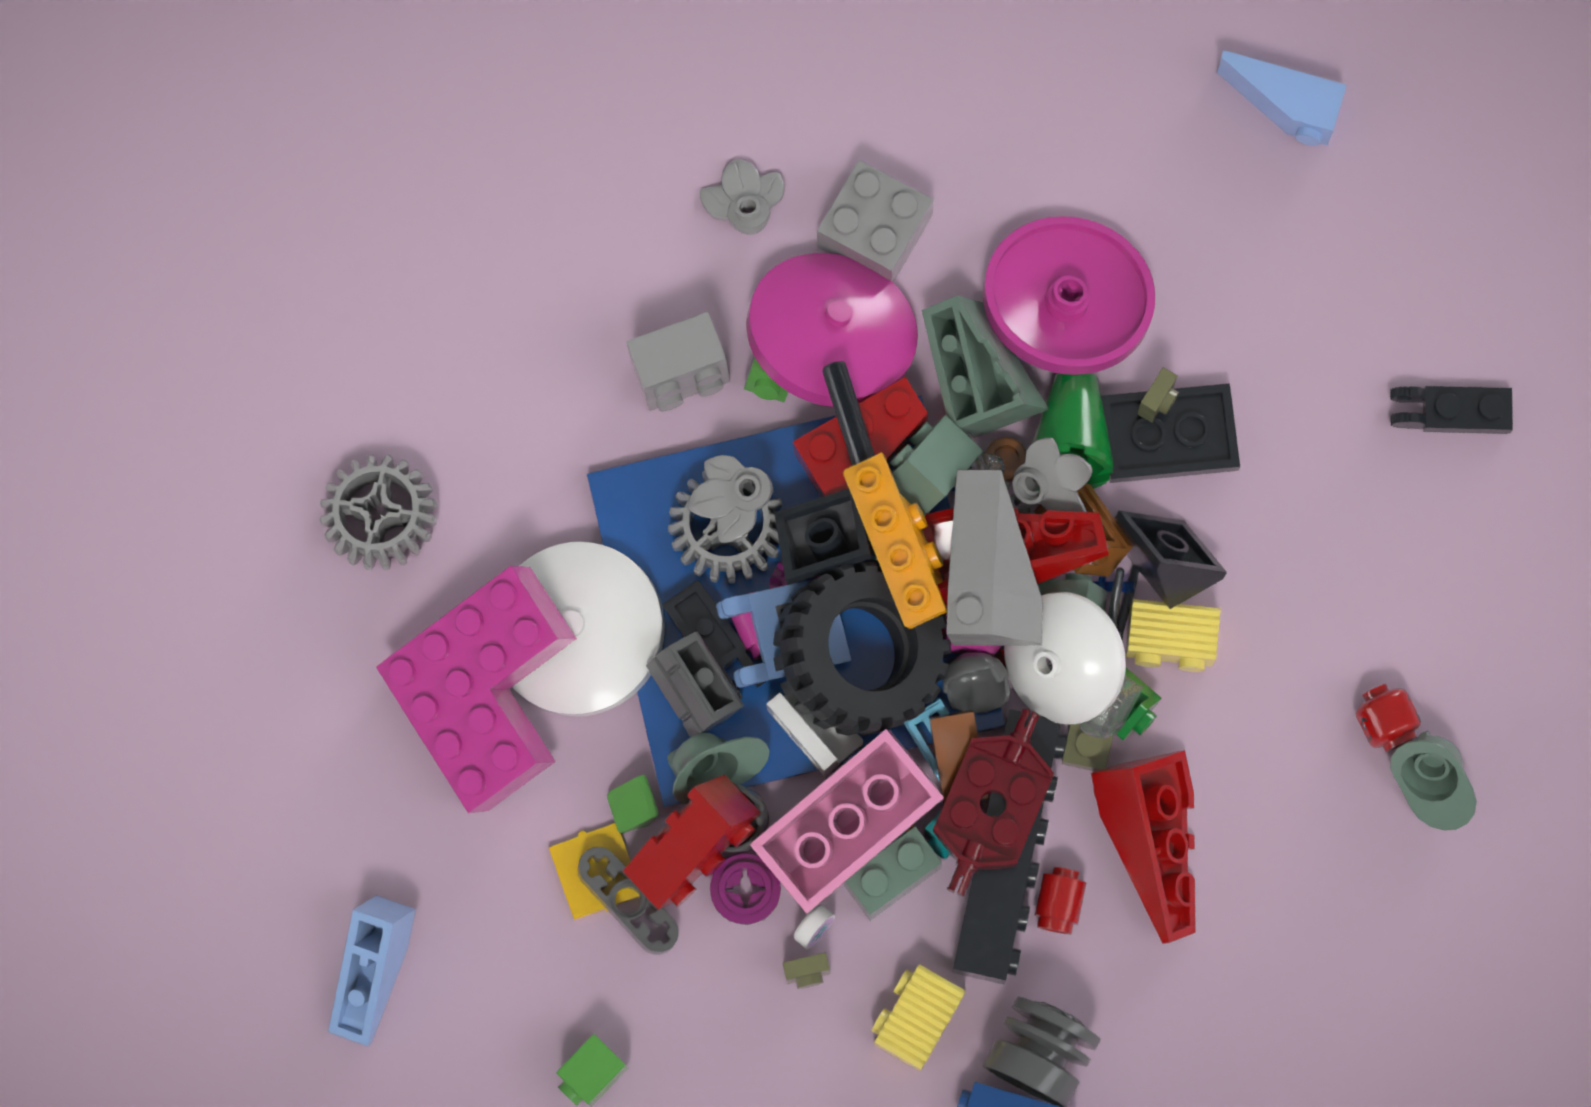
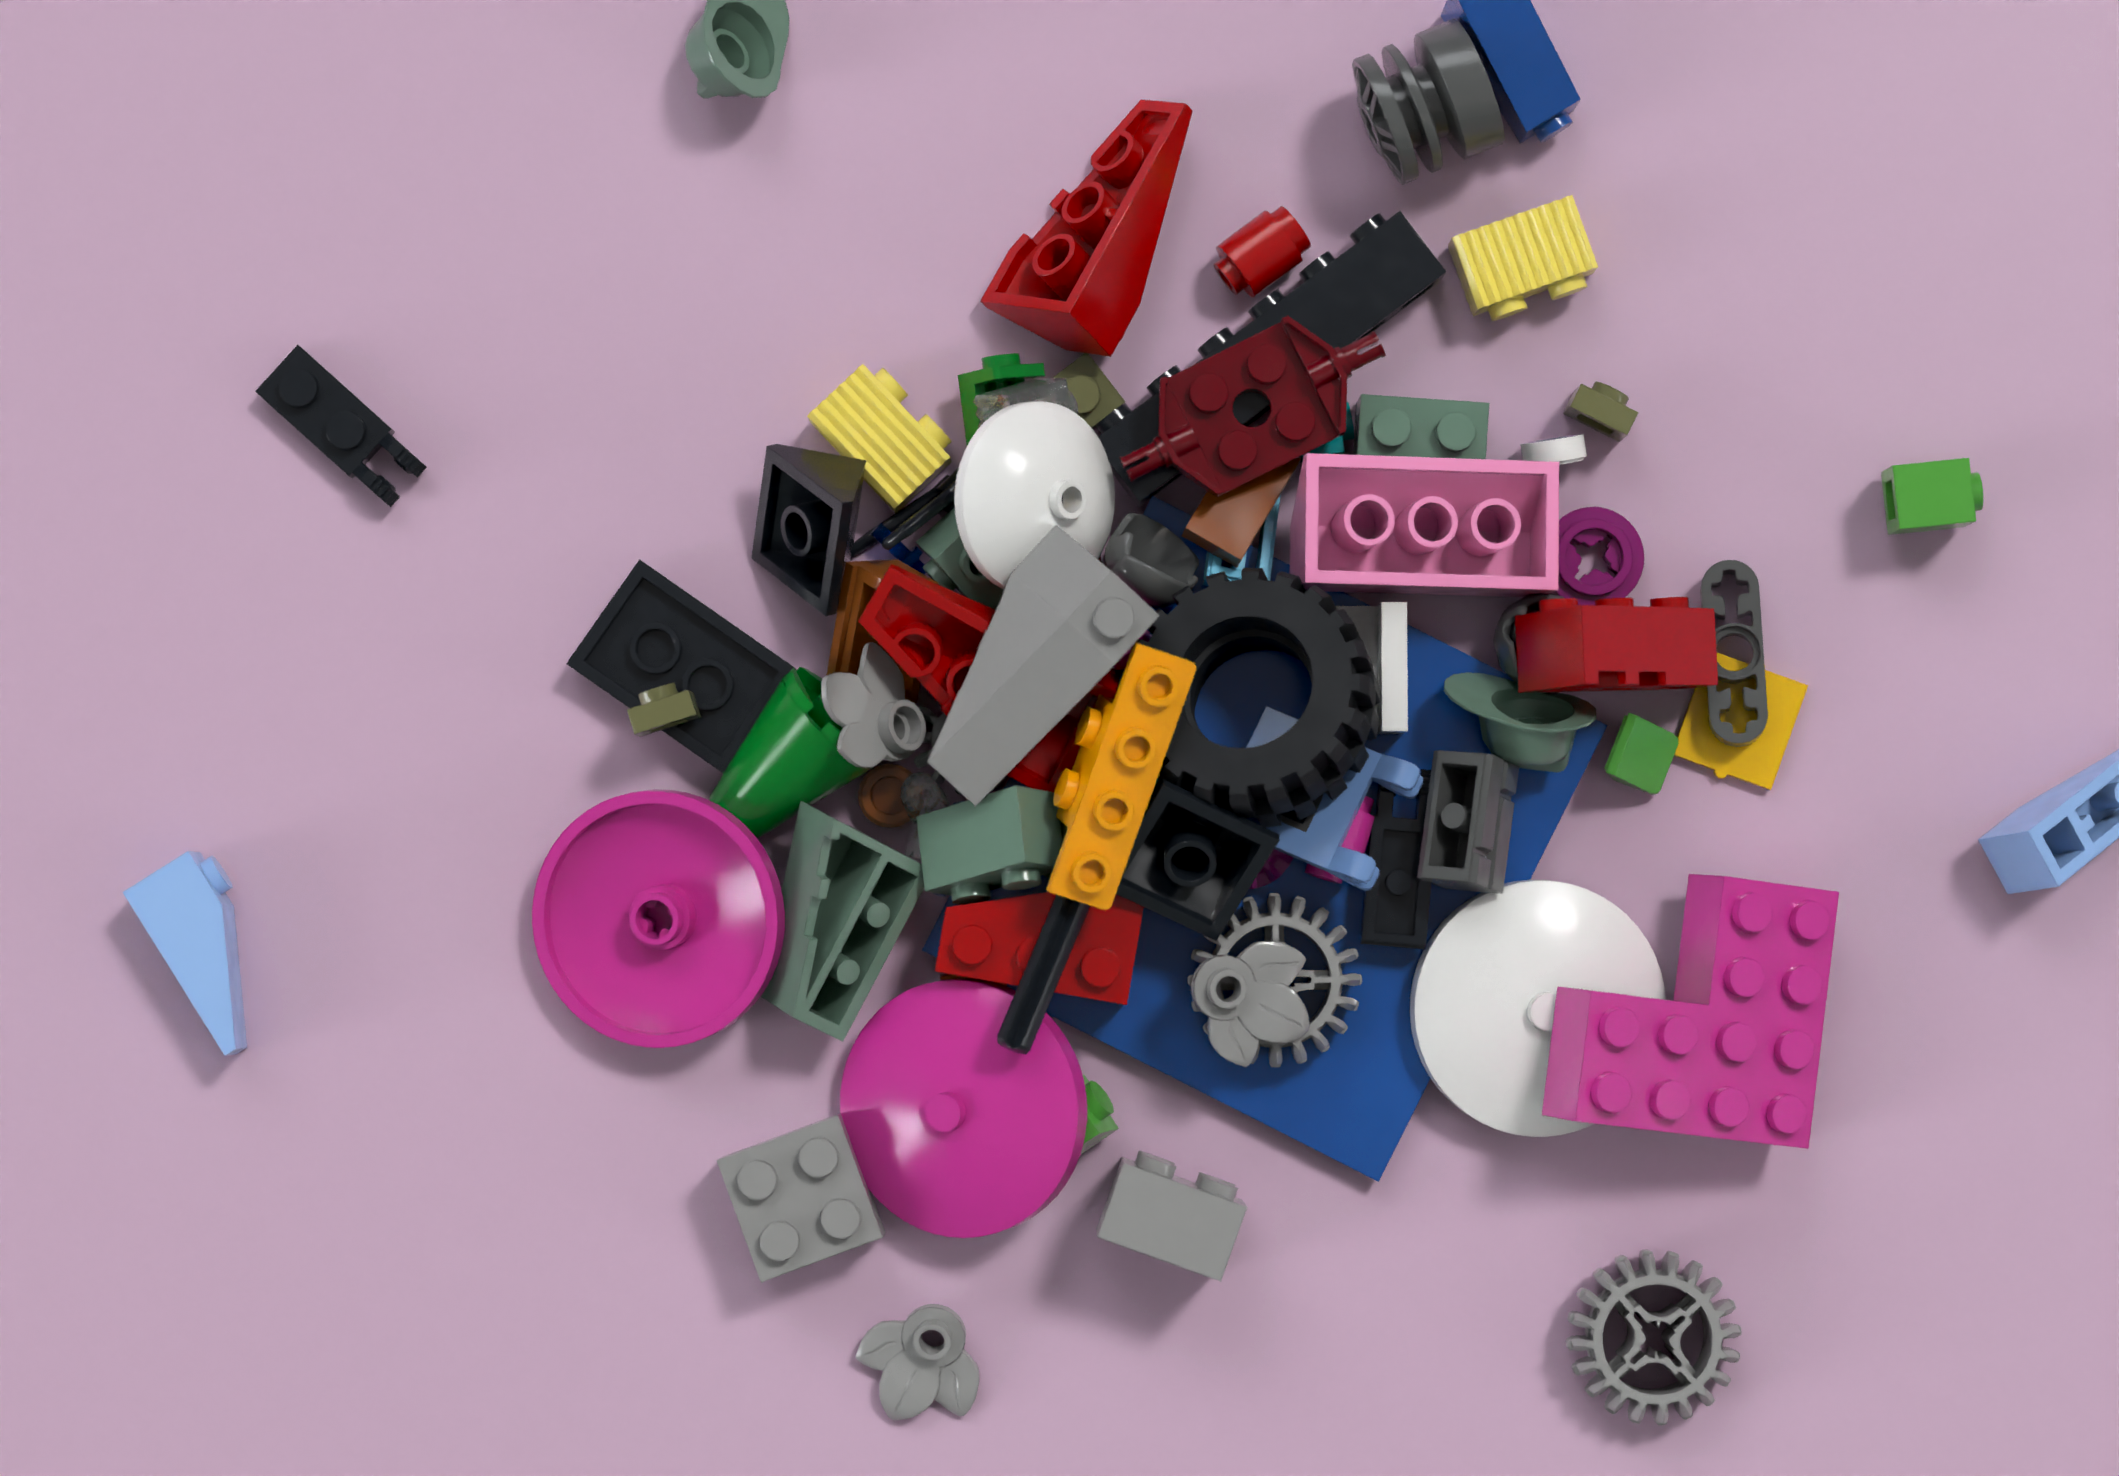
camera: 145 degrees left, 10 degrees up
(1388, 717) = (727, 146): red head -> none

